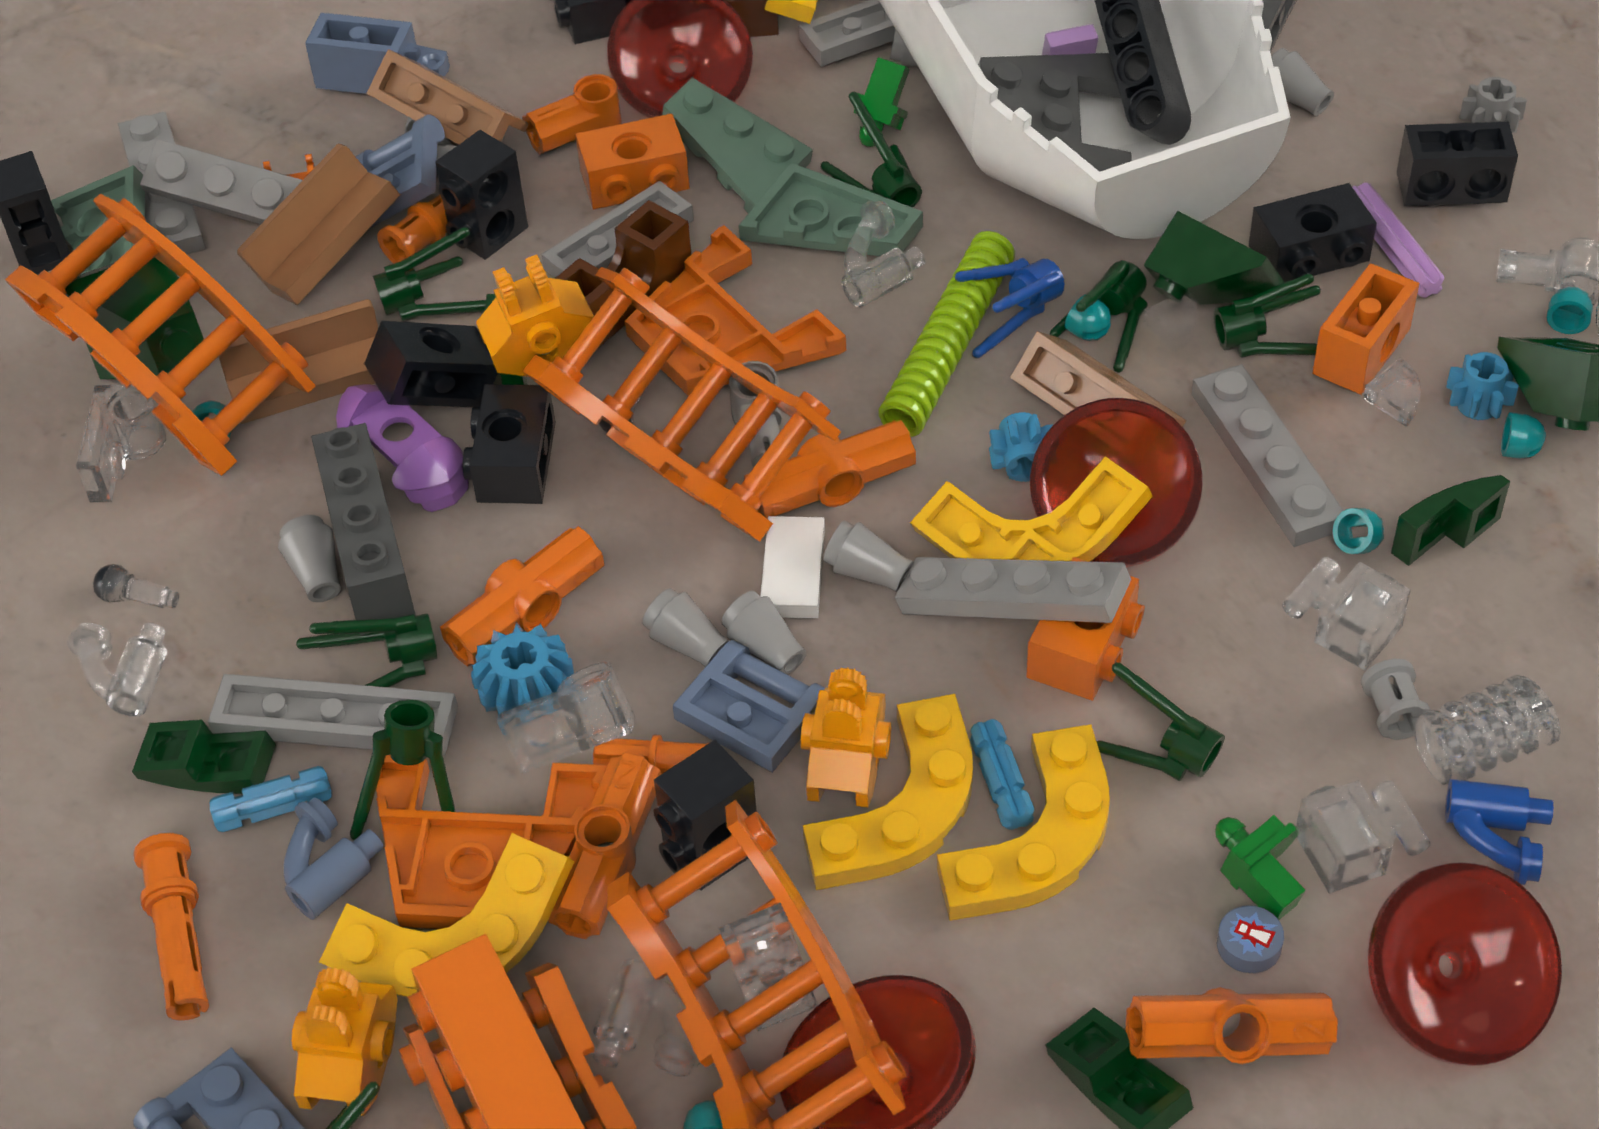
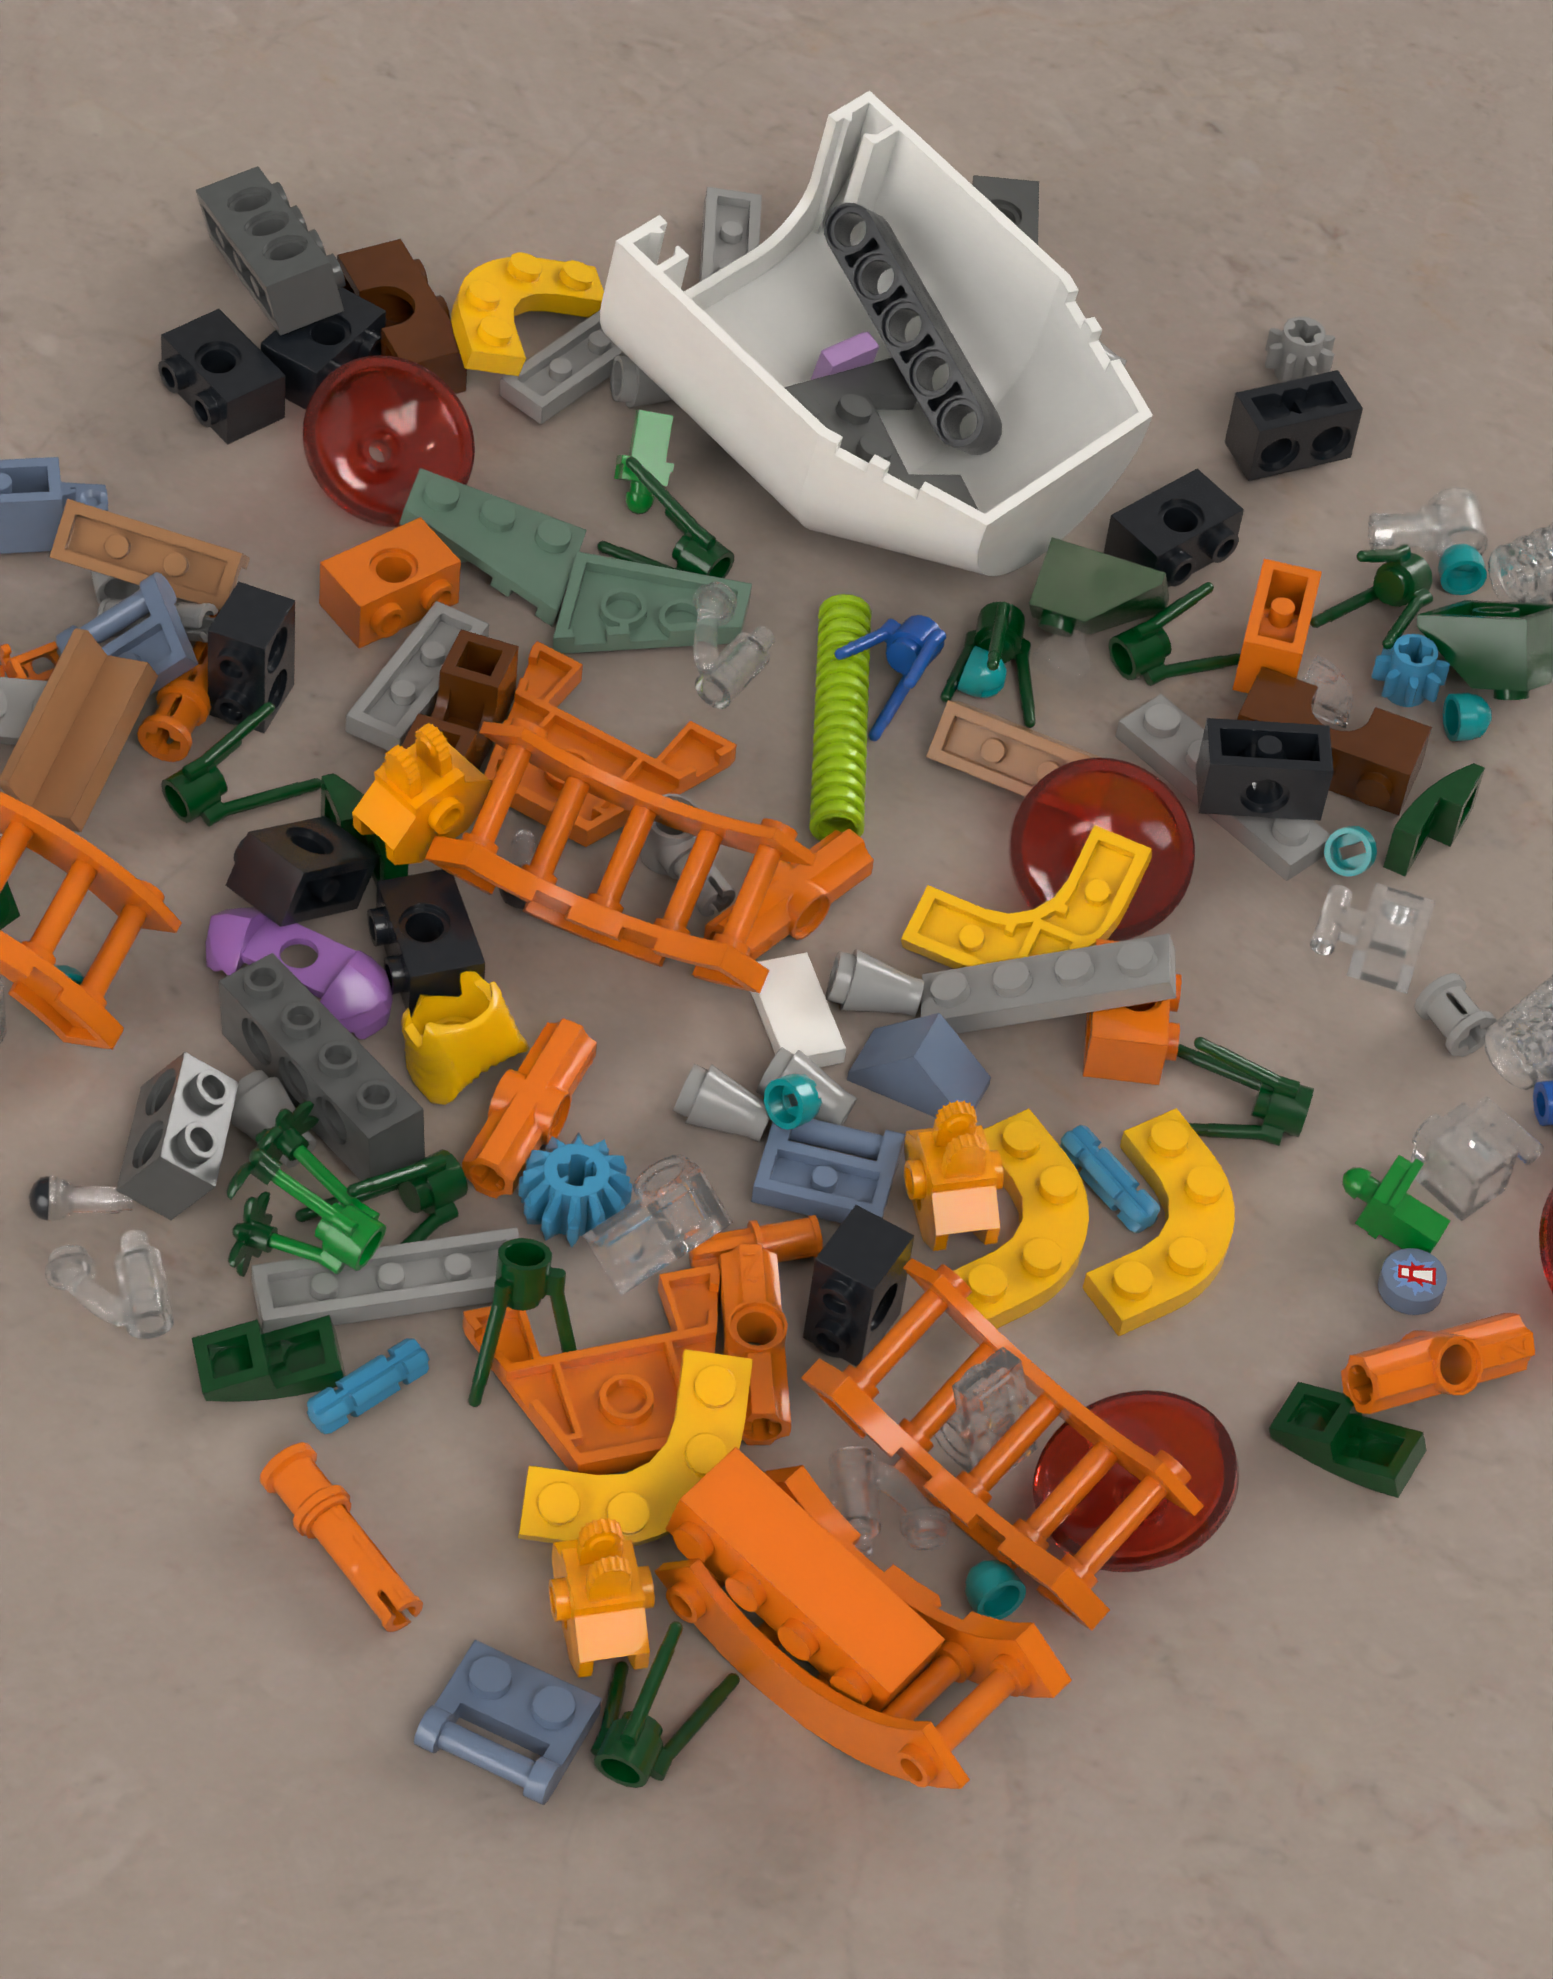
camera: 30 degrees left, 0 degrees up
(221, 554) = (178, 1136): none -> dark grey brick
(298, 664) = (347, 1232): none -> plant
(330, 342) = (167, 859): medium nougat panel -> none
(335, 872) = (474, 1458): sand blue plant -> none
(495, 525) = (458, 1037): none -> yellow hair
(589, 108) = (297, 536): orange piece -> none
(735, 638) = (779, 1106): none -> teal hinge
(880, 640) = (920, 1065): none -> sand blue slope
(1016, 444) = (980, 831): dark azure gear -> none
(1289, 439) = (1264, 769): none -> black brick
(1400, 244) = (1265, 528): lavender axle -> none
(1409, 459) = (1369, 763): none -> reddish brown arch
(1505, 309) = (1397, 582): none -> dark green plant

